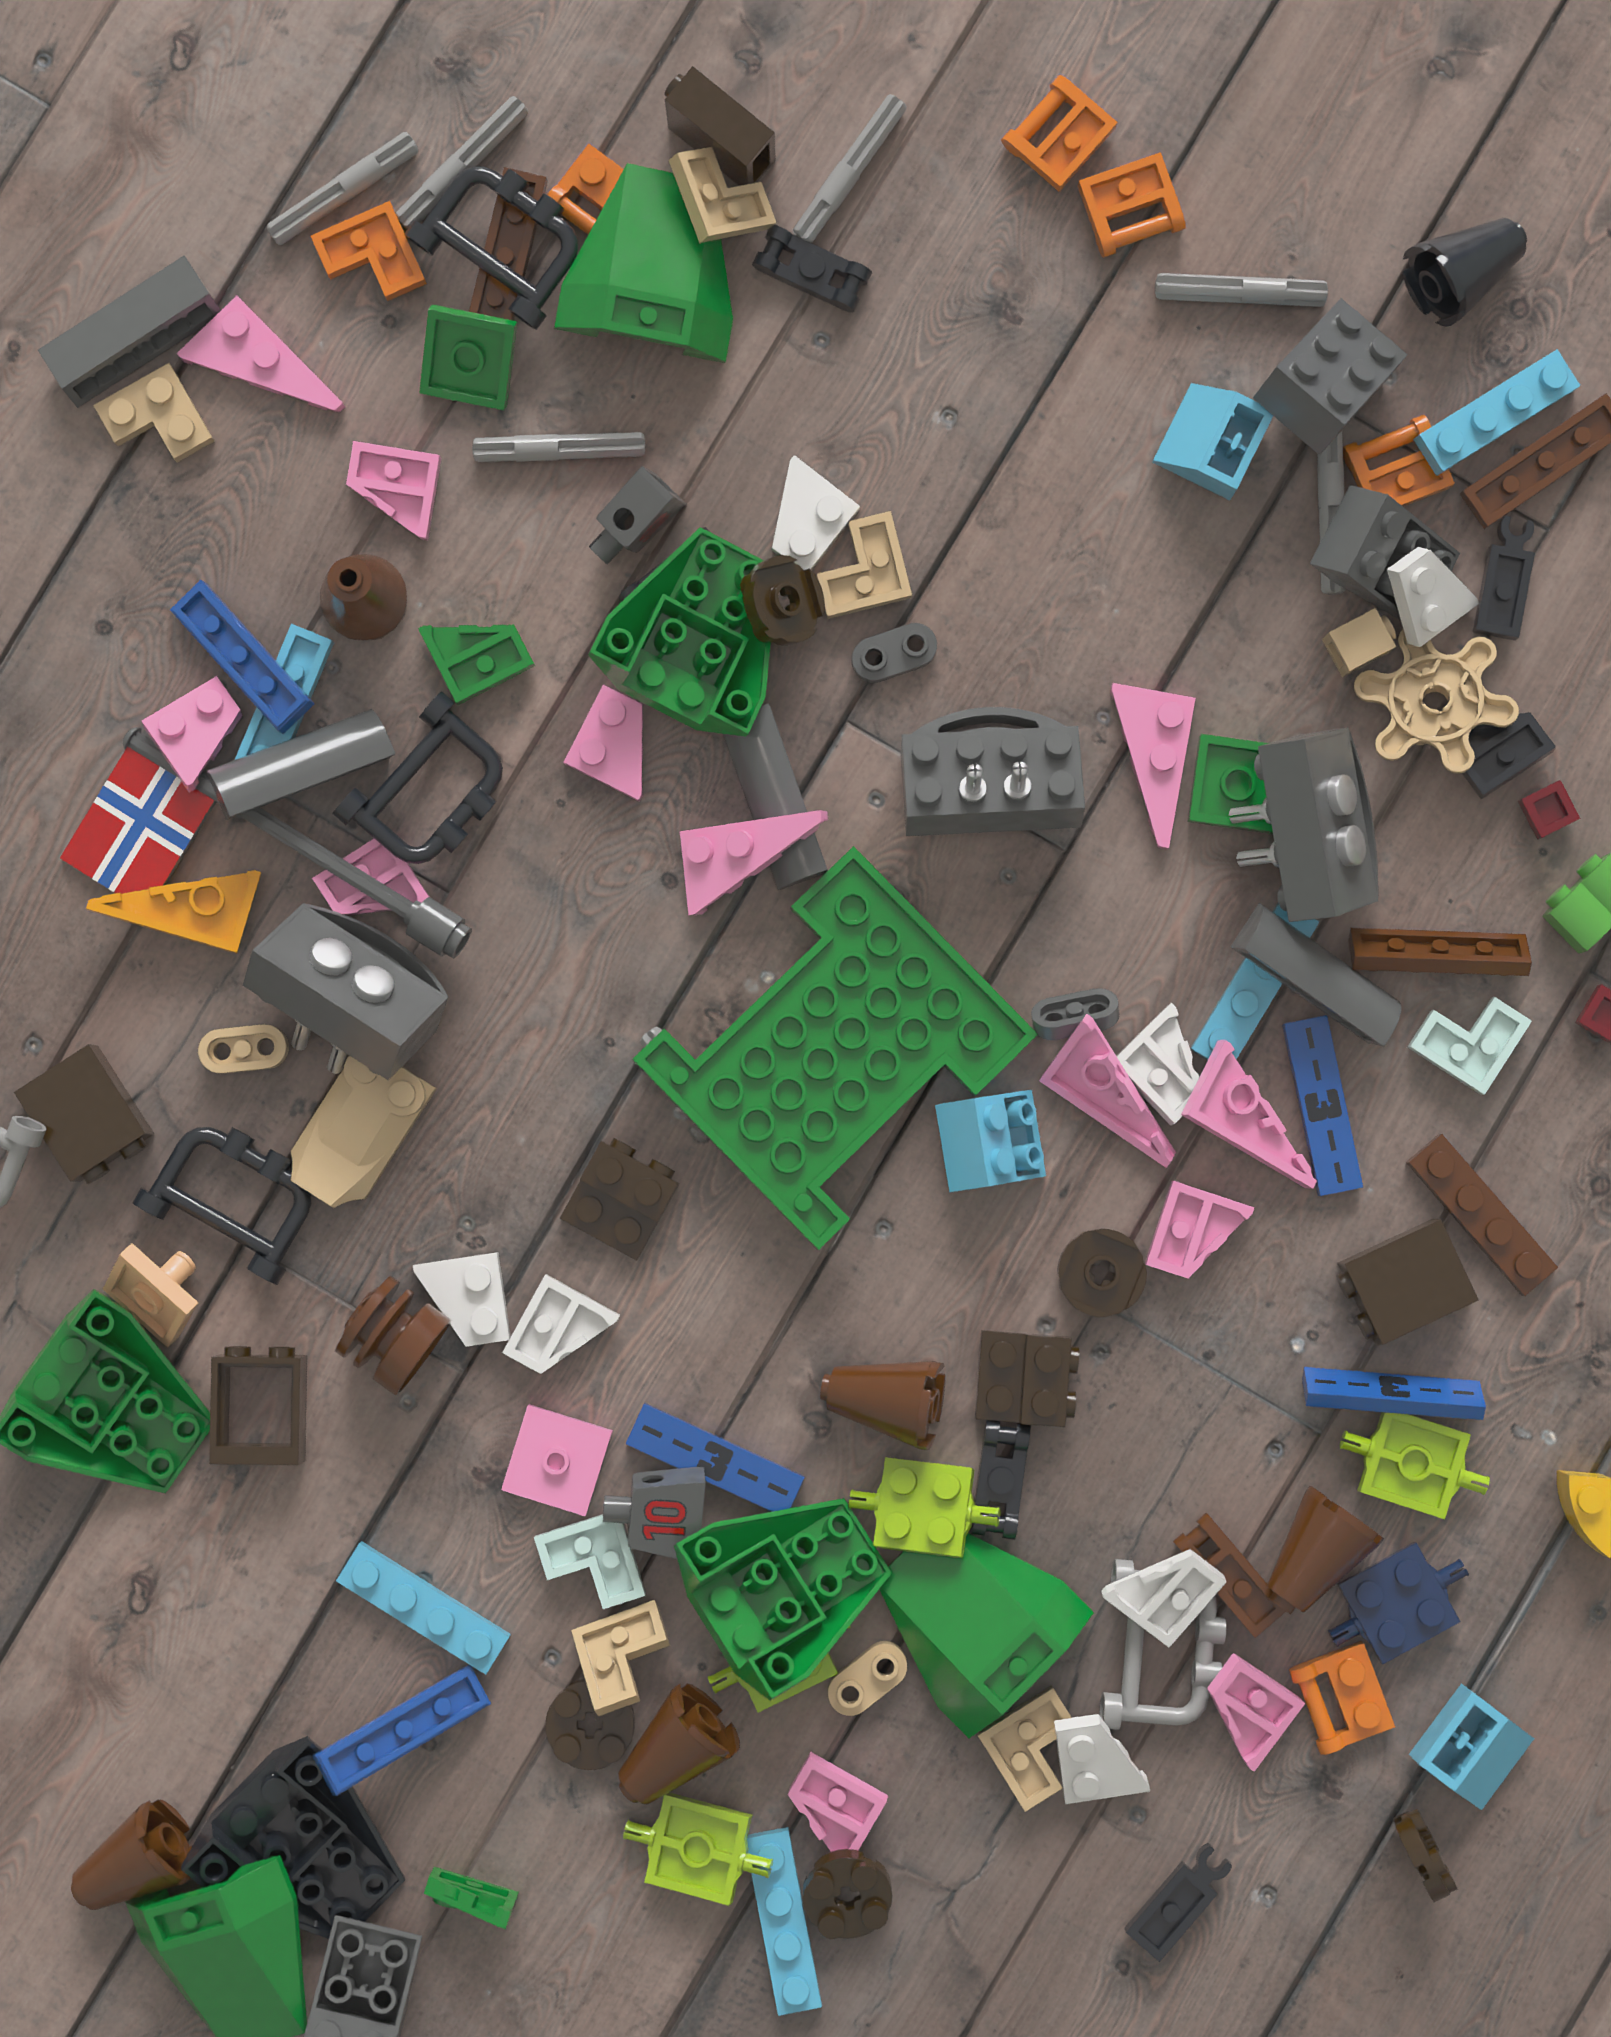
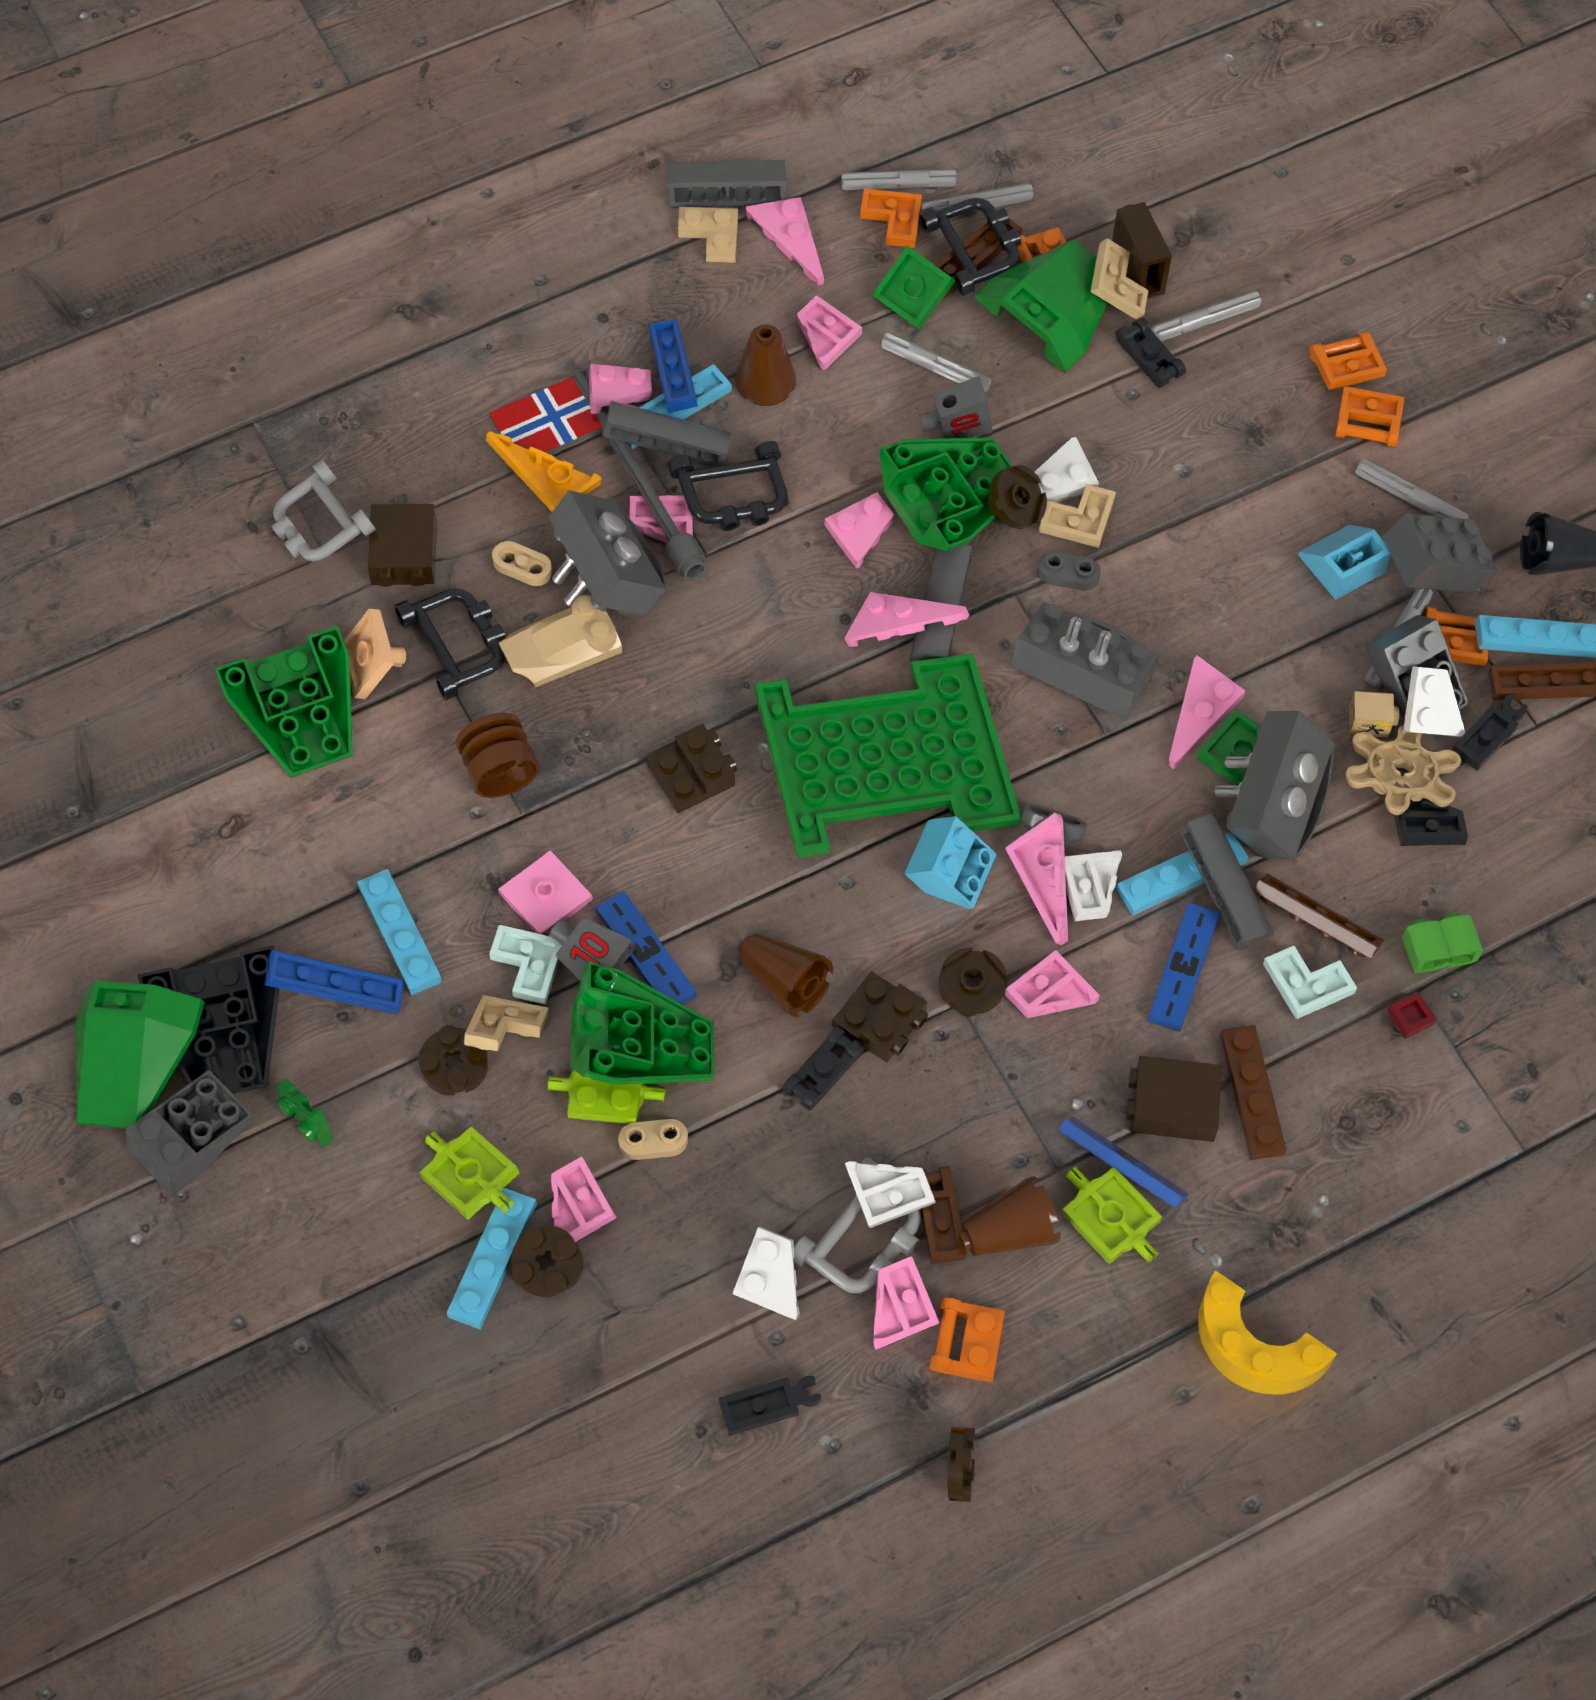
camera: 30 degrees right, 25 degrees down
(135, 1859) = (109, 959): reddish brown cone -> none
(257, 1453) = (365, 781): dark brown window -> none
(470, 1295) = (560, 772): white wing -> none
(476, 657) = (811, 439): green wing -> none
(556, 1325) = (601, 816): white wing -> none
(677, 1746) = (499, 1098): reddish brown cone -> none
(924, 1507) = (762, 1050): lime plate -> none
(981, 1626) = (749, 1141): green wedge -> none
(1016, 1744) = (723, 1236): tan plate -> none
(1233, 1110) = (1123, 931): bright pink wing -> none
(1398, 1603) = (1045, 1300): dark blue plate -> none
(1471, 1747) = (1039, 1419): medium azure slope -> none
(1549, 809) = (1442, 874): dark red plate -> none

